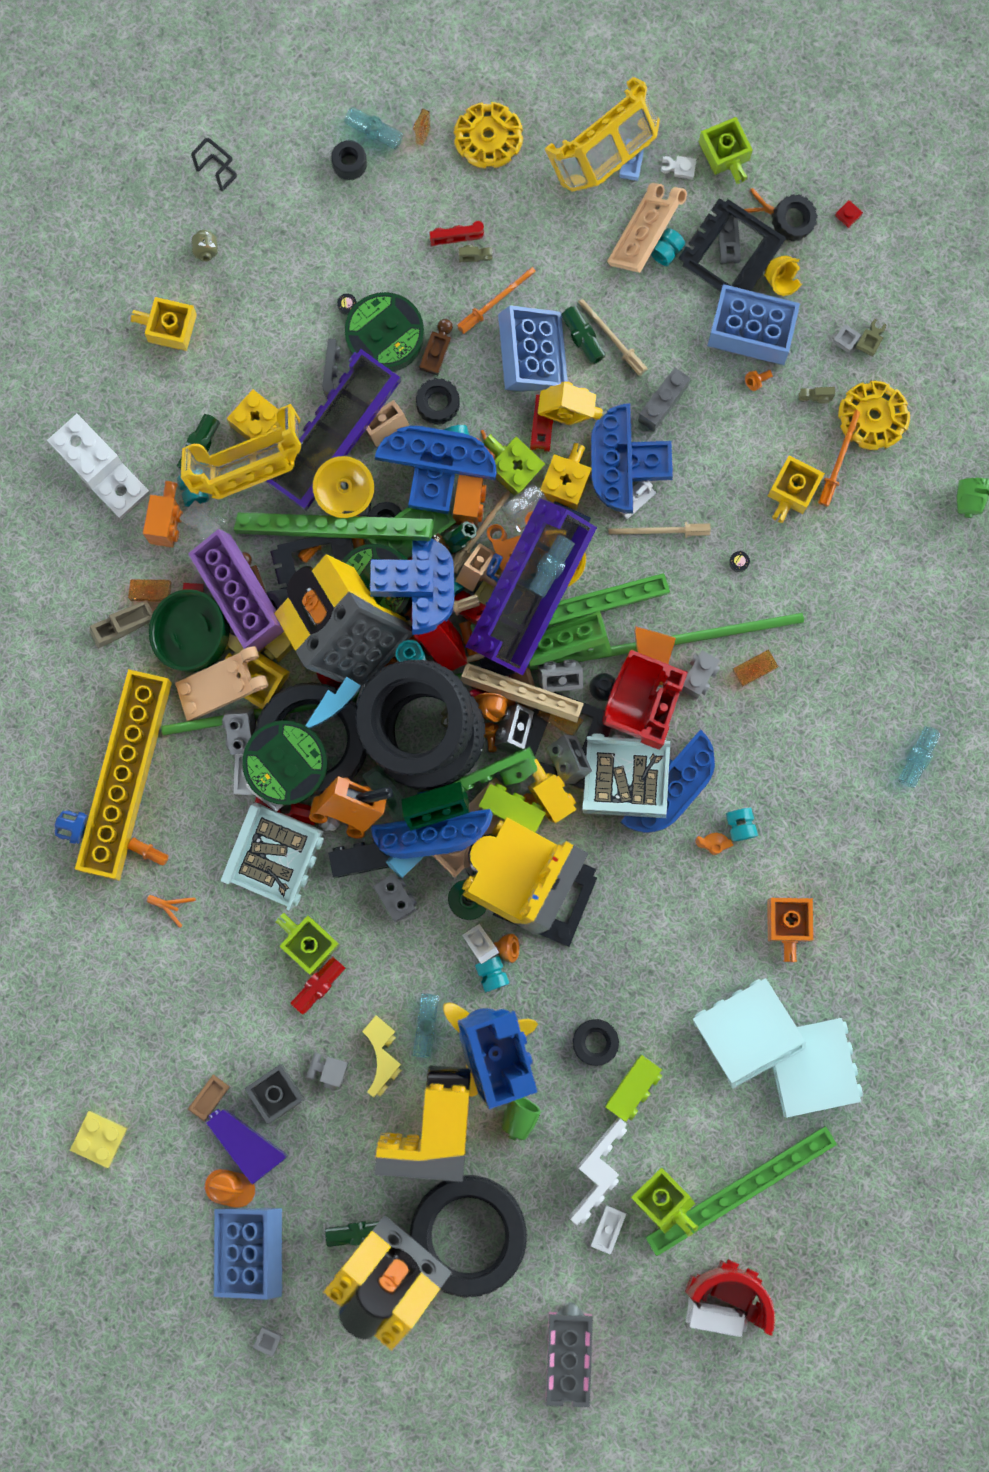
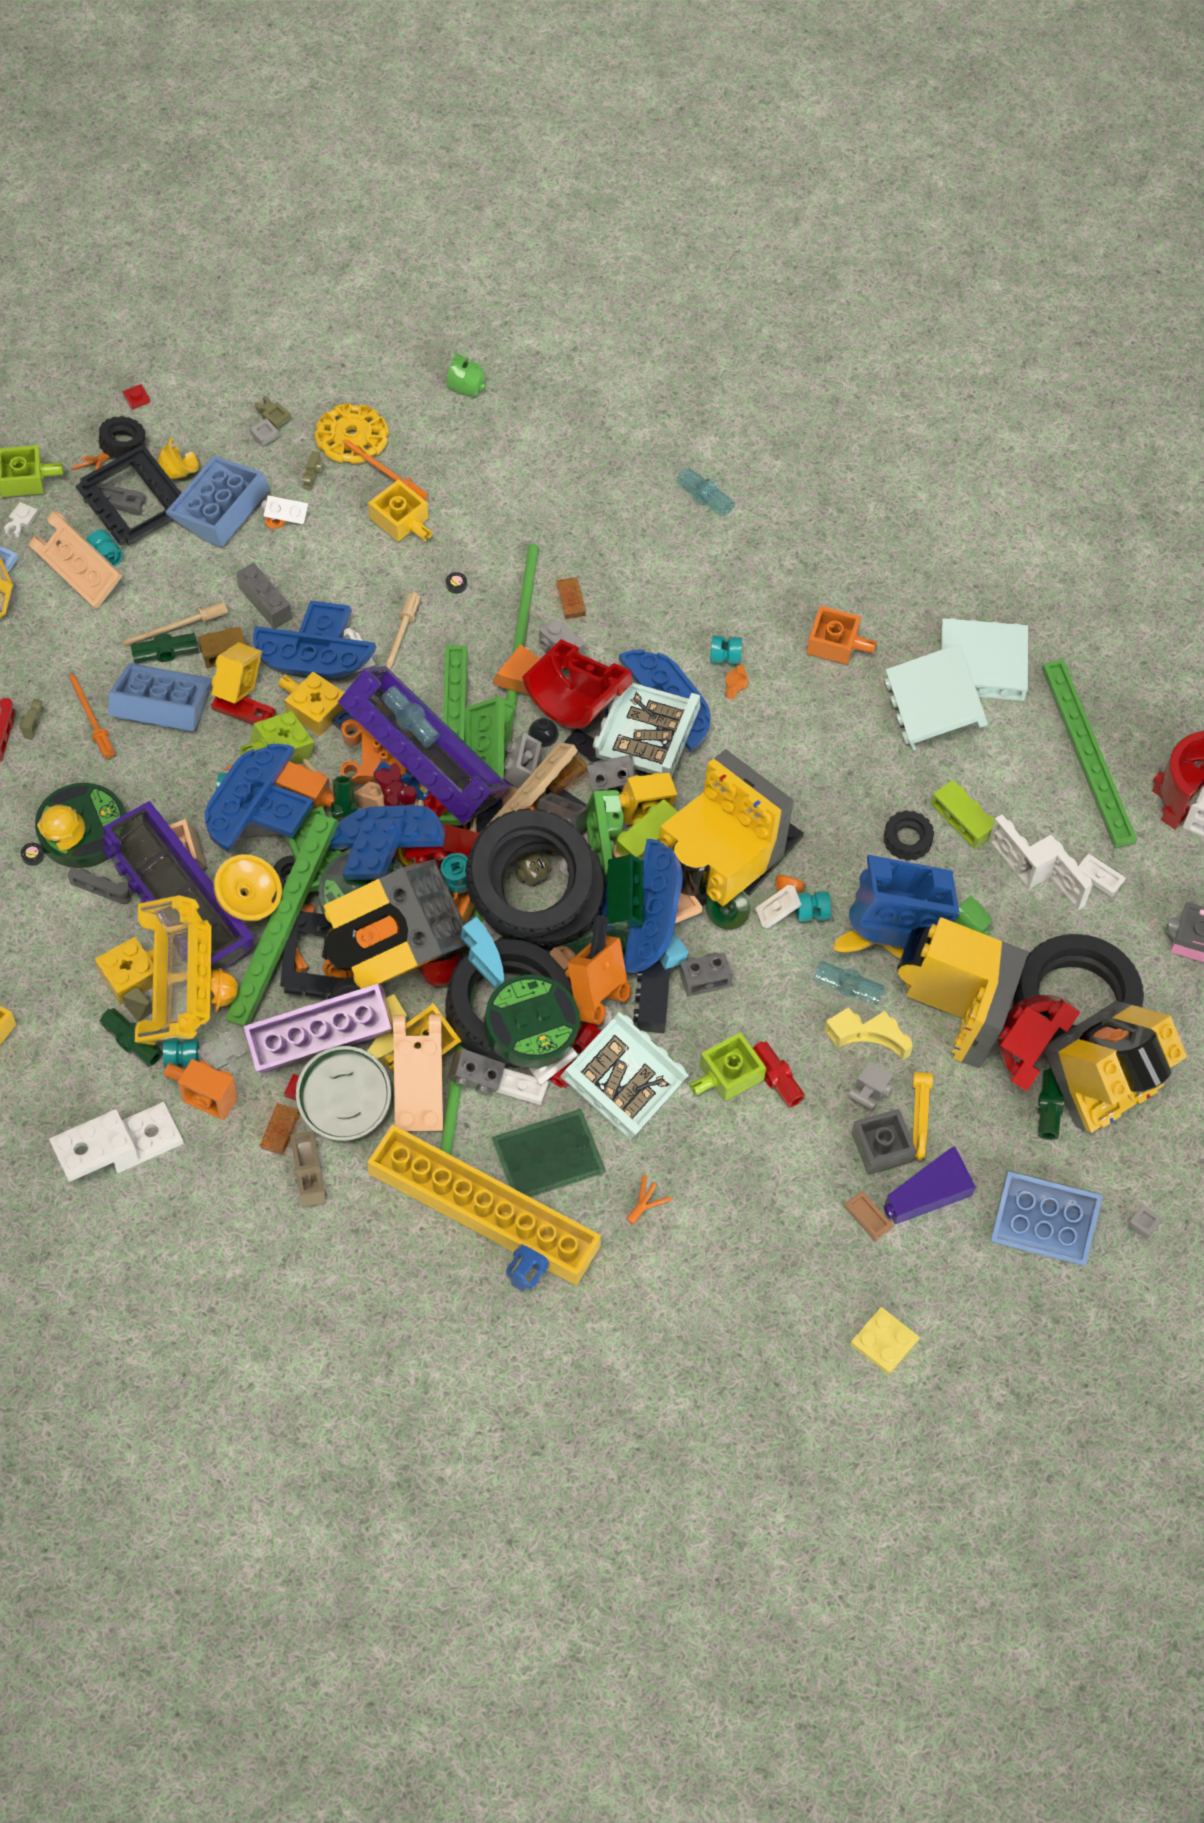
camera: 75 degrees left, 20 degrees down
(148, 851) = (579, 1205): orange axle -> none
(190, 814) = (549, 1154): none -> clear green plate
(229, 1188) = (971, 1221): orange piece -> none
(231, 439) = (137, 1004): none -> olive slope
(257, 498) = (223, 988): none -> light orange piece
(345, 1115) = (922, 1083): none -> yellow piece
(361, 772) = (562, 955): none -> medium nougat tile
(369, 316) = (62, 824): none -> yellow helmet
(387, 1201) = (1029, 1032): none -> red piece
(433, 386) = (179, 780): black tyre -> none
(437, 348) = (120, 781): reddish brown plate -> none
(472, 579) = (392, 787): none -> dark red animal
(521, 505) = (329, 743): clear brick -> none
(598, 381) = (218, 642): none -> pearl gold brick
(670, 1212) = (1096, 809): lime brick -> none
(761, 385) = (284, 509): none -> white hinge

